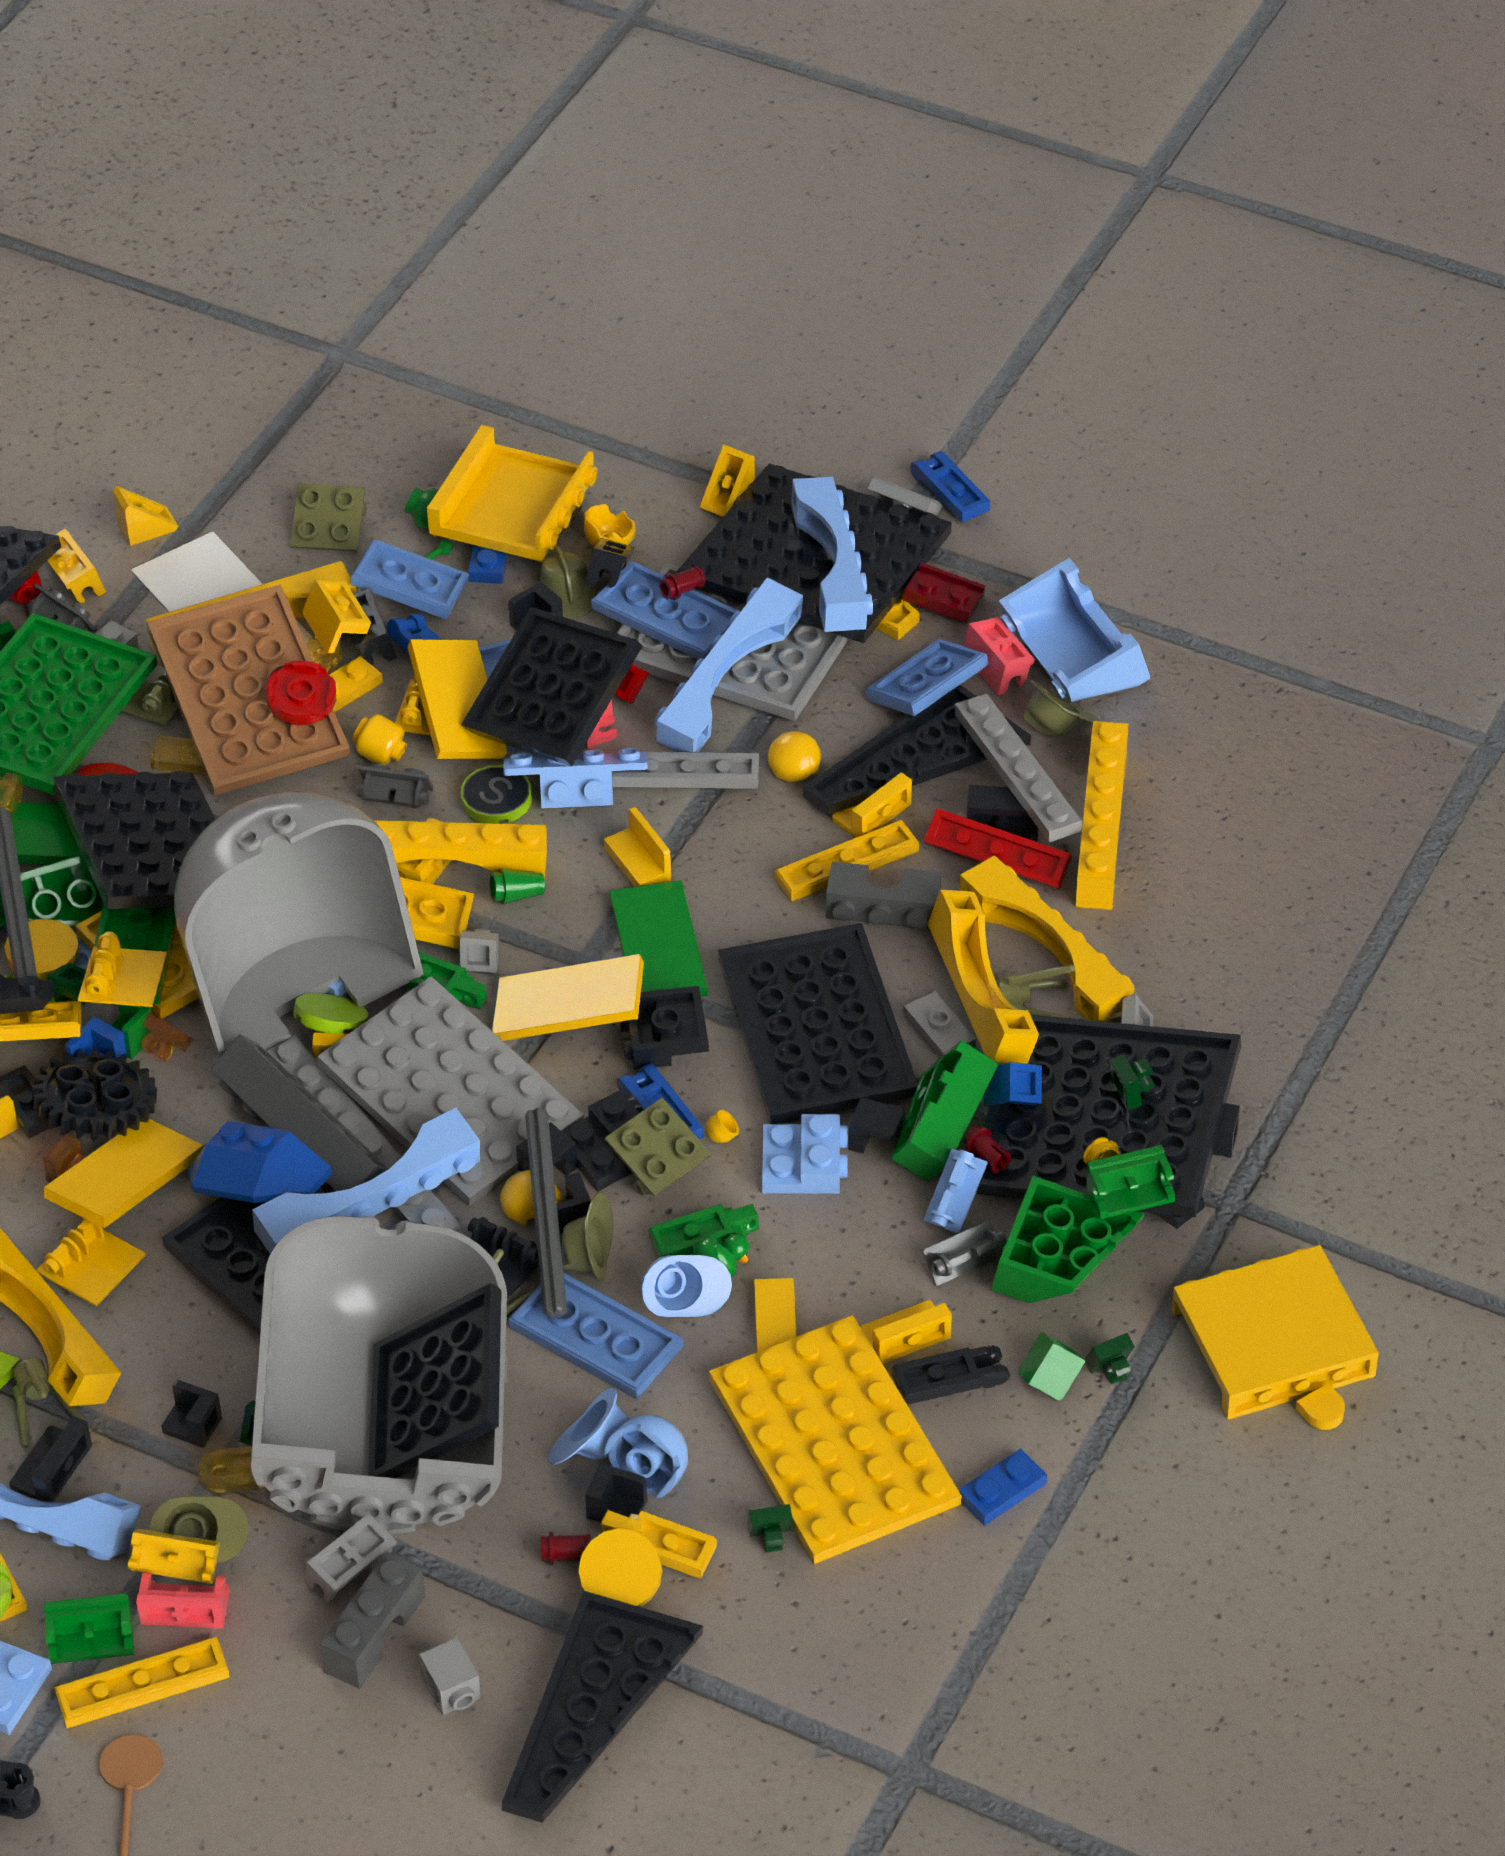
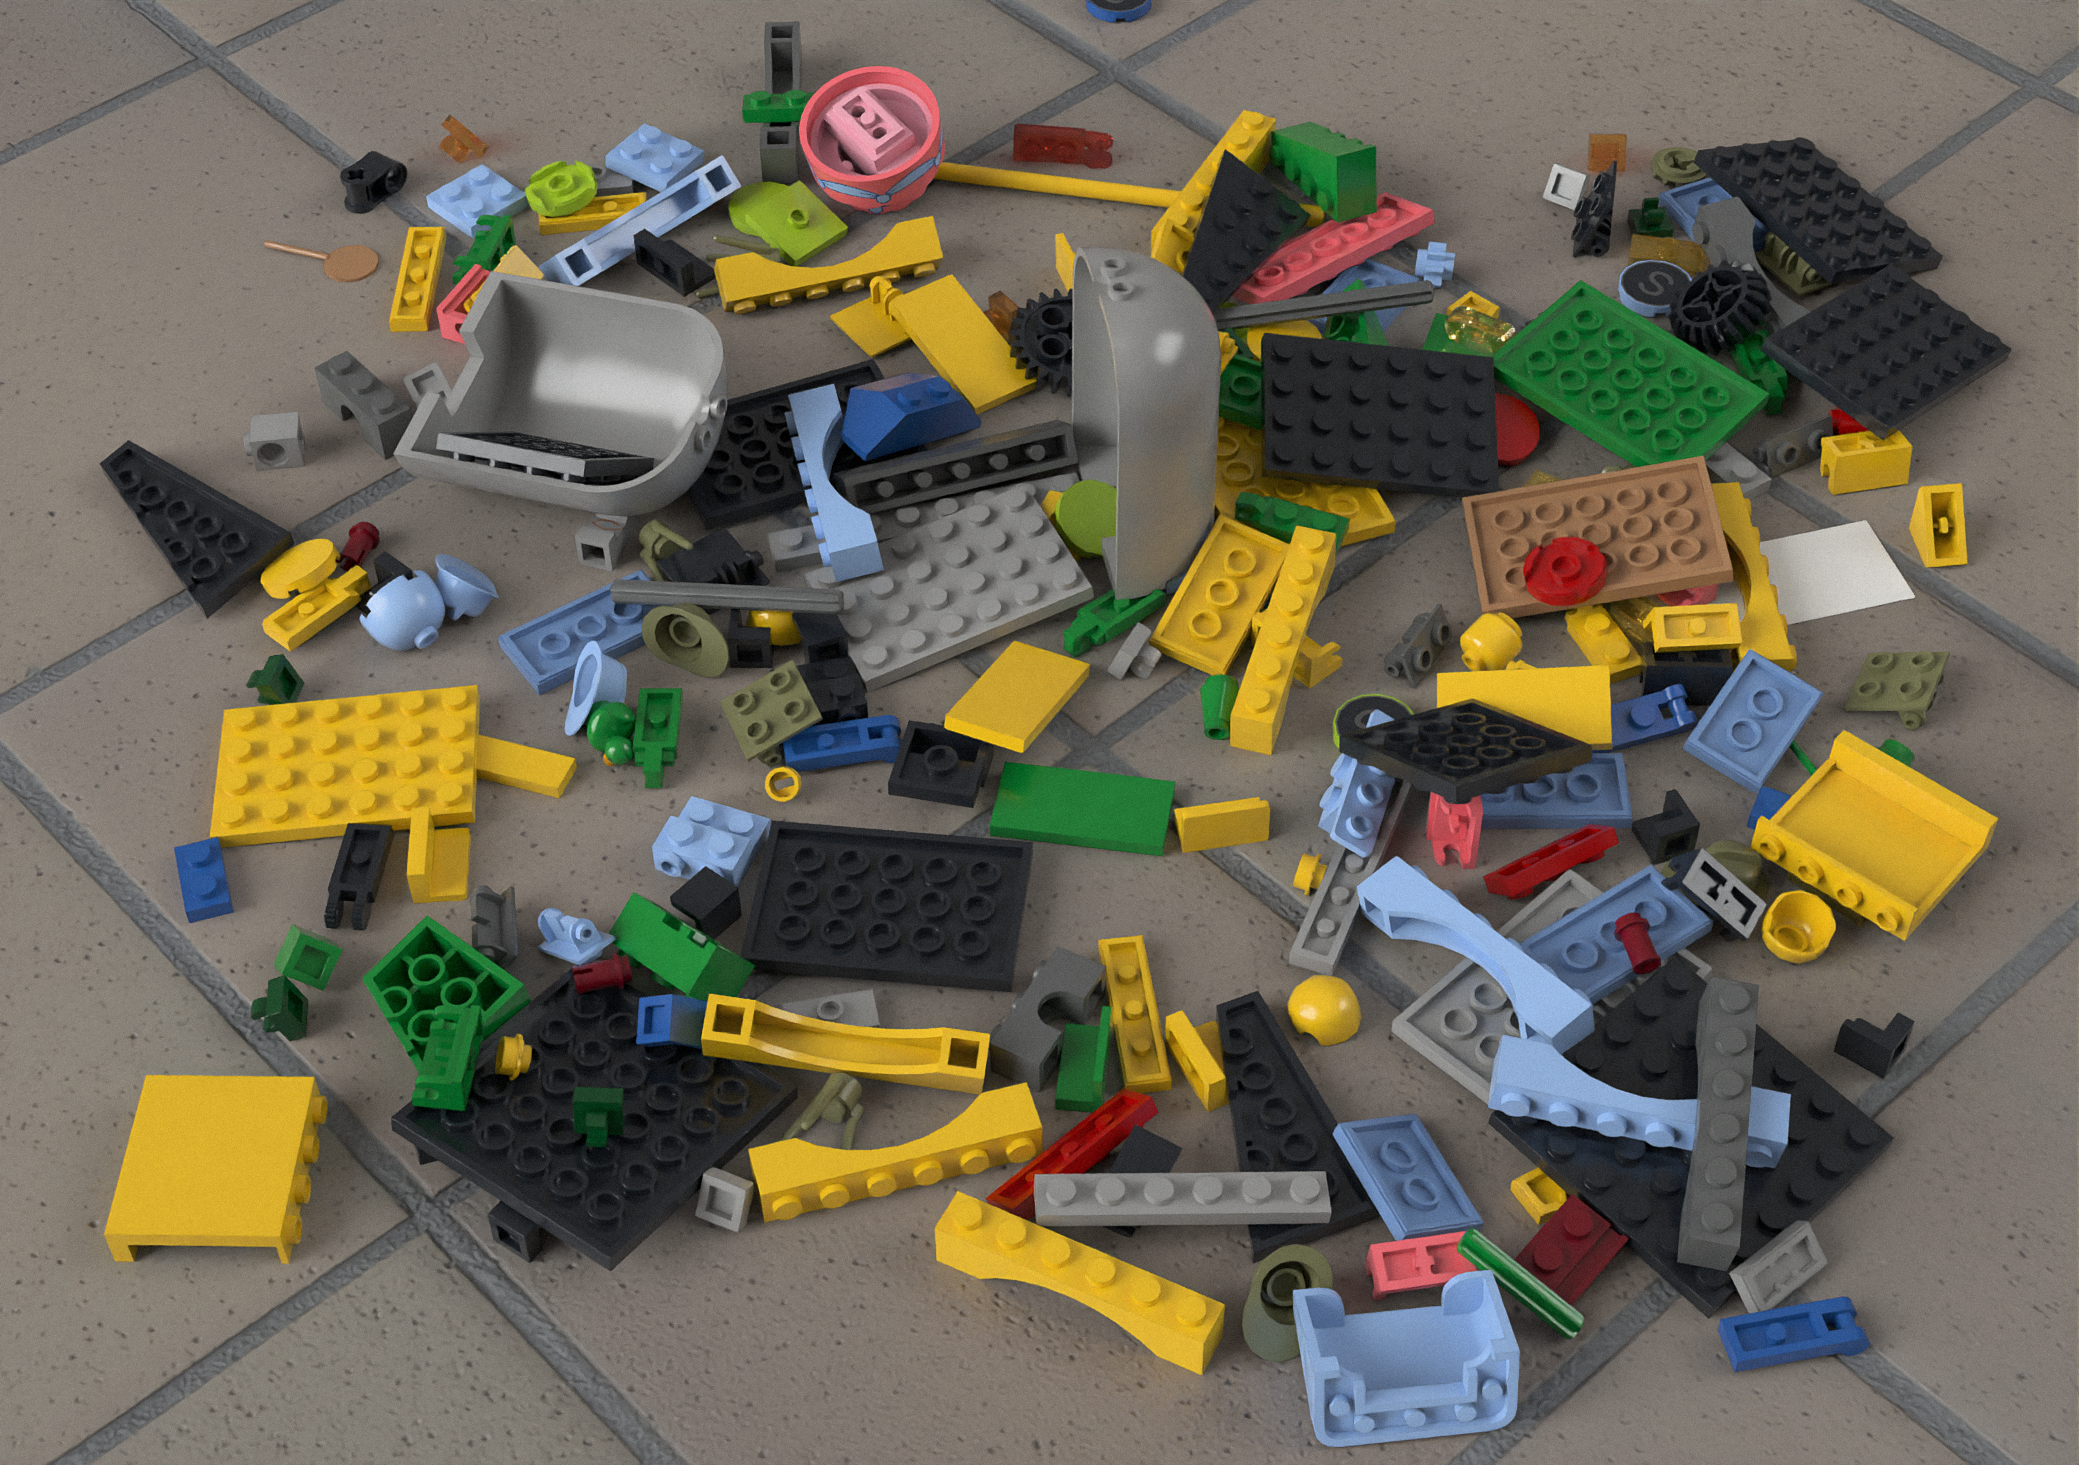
camera: 110 degrees right, 0 degrees up
(668, 793) = (1309, 873): none -> yellow plate
(690, 481) = (1872, 1046): none -> black panel
(729, 480) = (1859, 1075): yellow slope -> none
(762, 507) = (1718, 1159): none -> dark grey arch
(913, 852) = (1084, 1065): none -> green panel
(990, 597) = (1520, 1284): none -> green axle
(1322, 1408) = (97, 1184): yellow tile -> none

